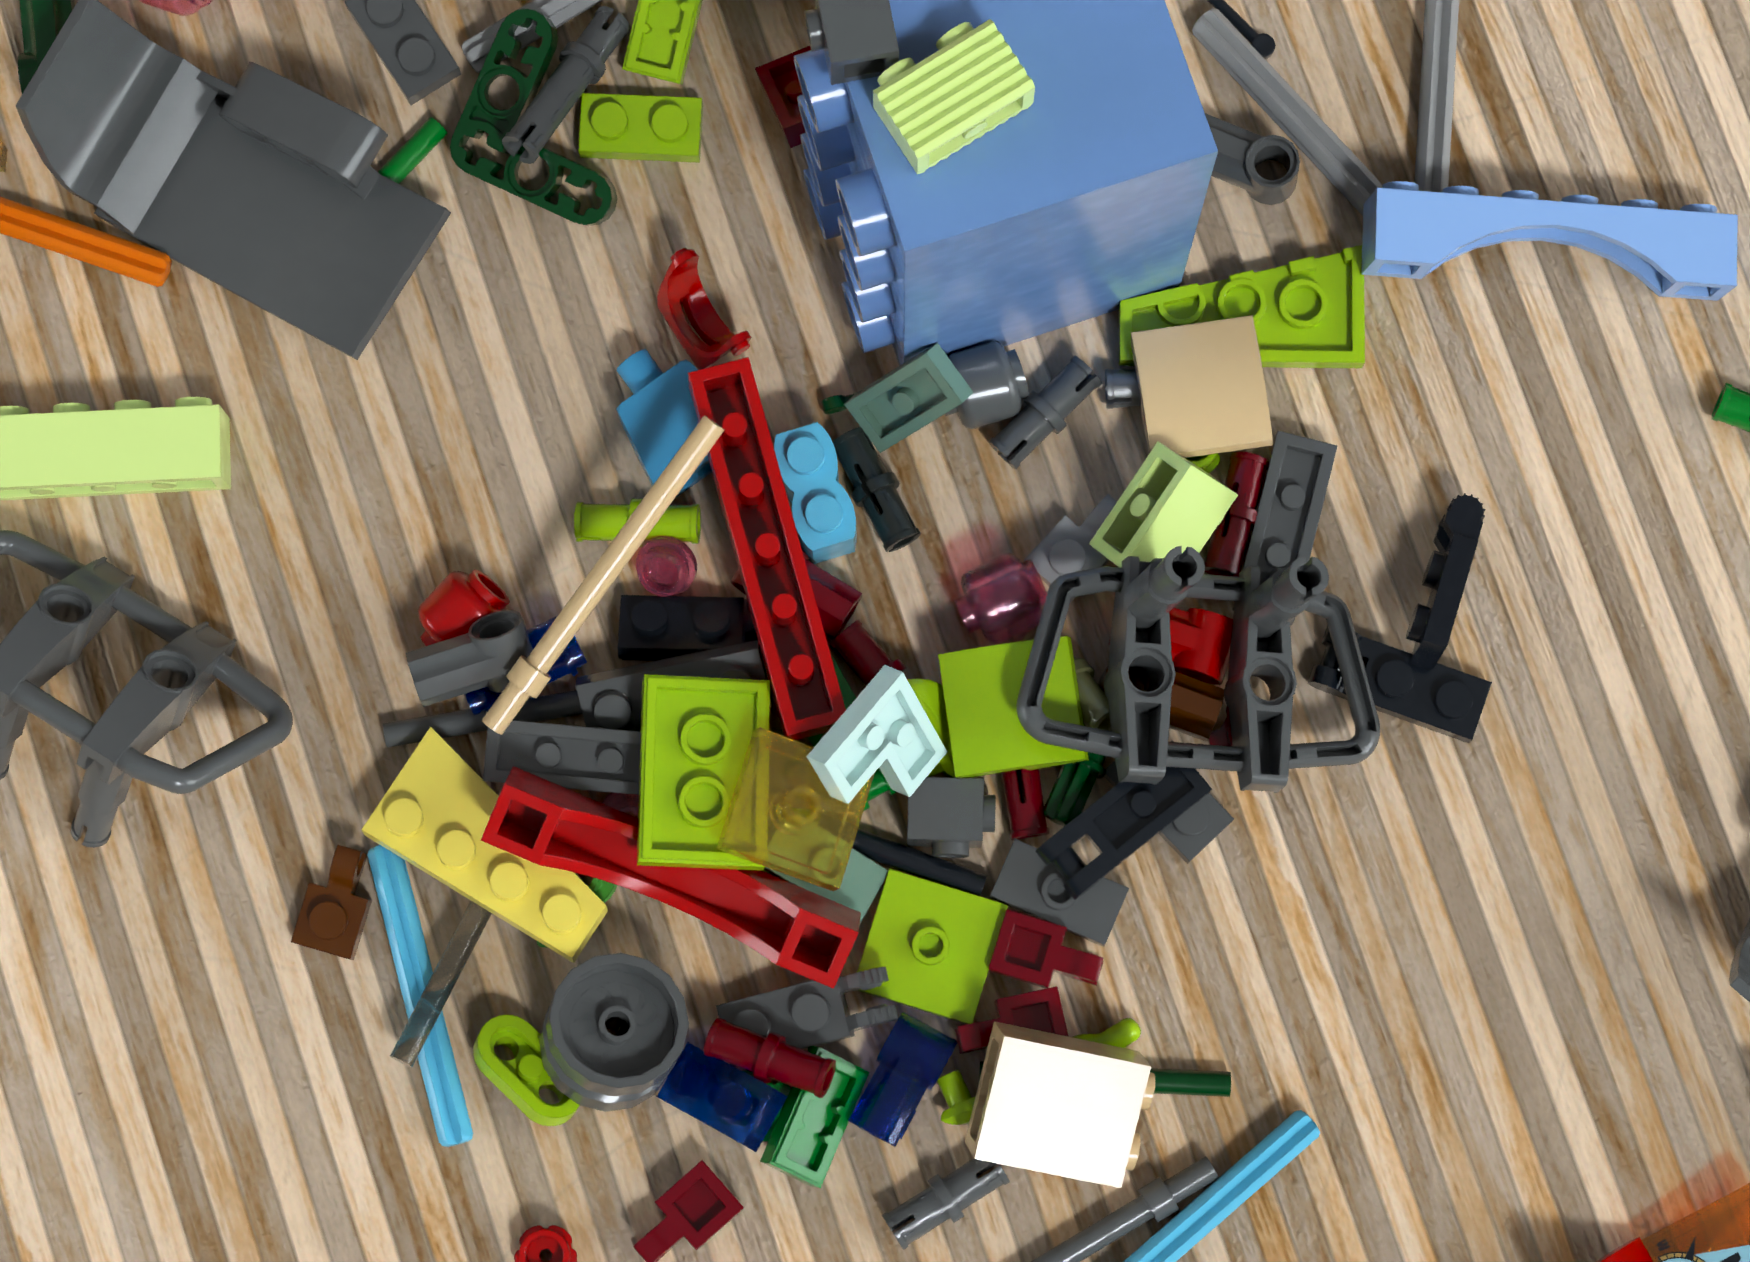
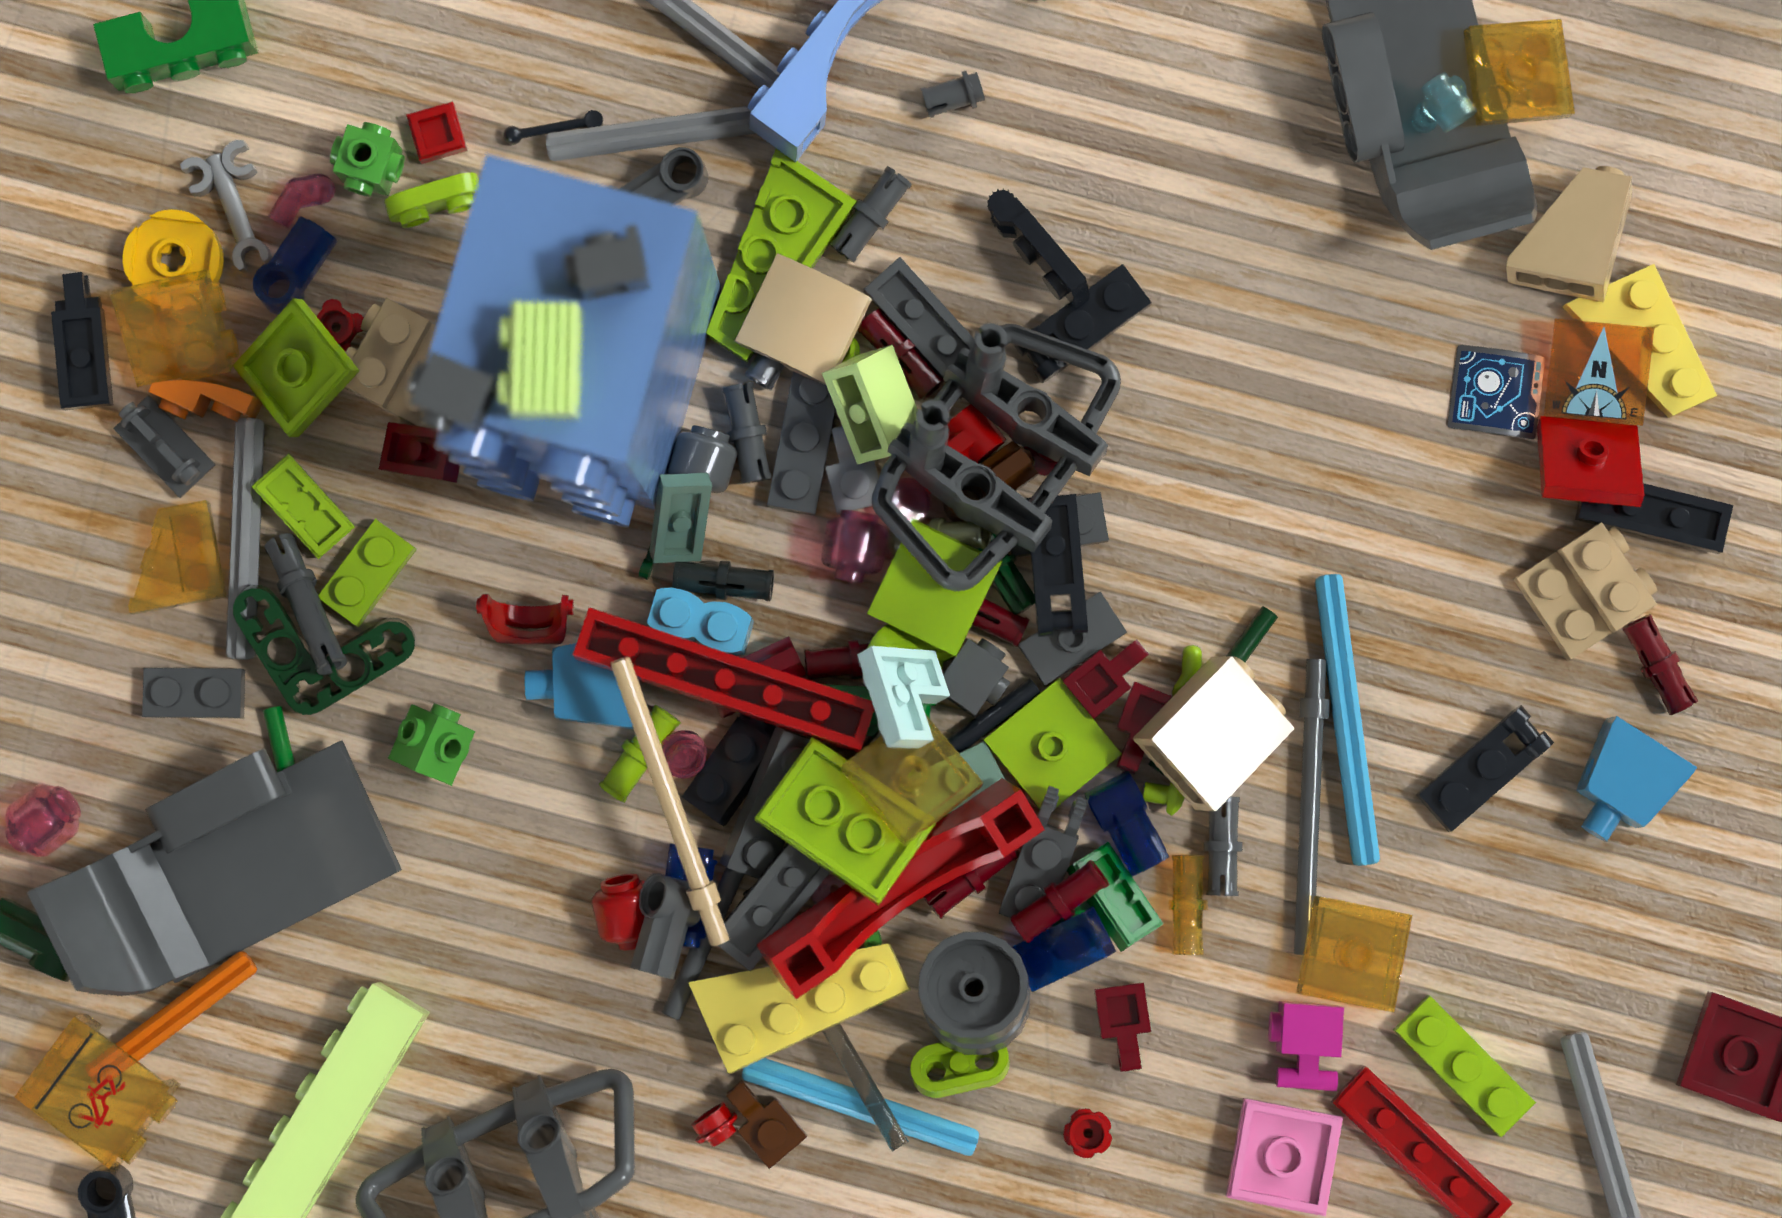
camera: 55 degrees left, 5 degrees up
(300, 856) = (715, 1125): none -> red plate
(508, 304) = (432, 742): none -> bright green brick
(713, 944) = (955, 891): none -> dark red pin
(858, 1201) = (1187, 904): none -> clear yellow pin
(1067, 480) = (802, 447): none -> dark grey plate
(1088, 623) = (911, 499): none -> clear pink plate
(1098, 95) = (608, 265): none -> dark grey brick
(1361, 387) = (870, 214): none -> dark grey pin
(1546, 390) = (953, 94): none -> dark grey pin
(1633, 1173) = (1496, 391): none -> sticker

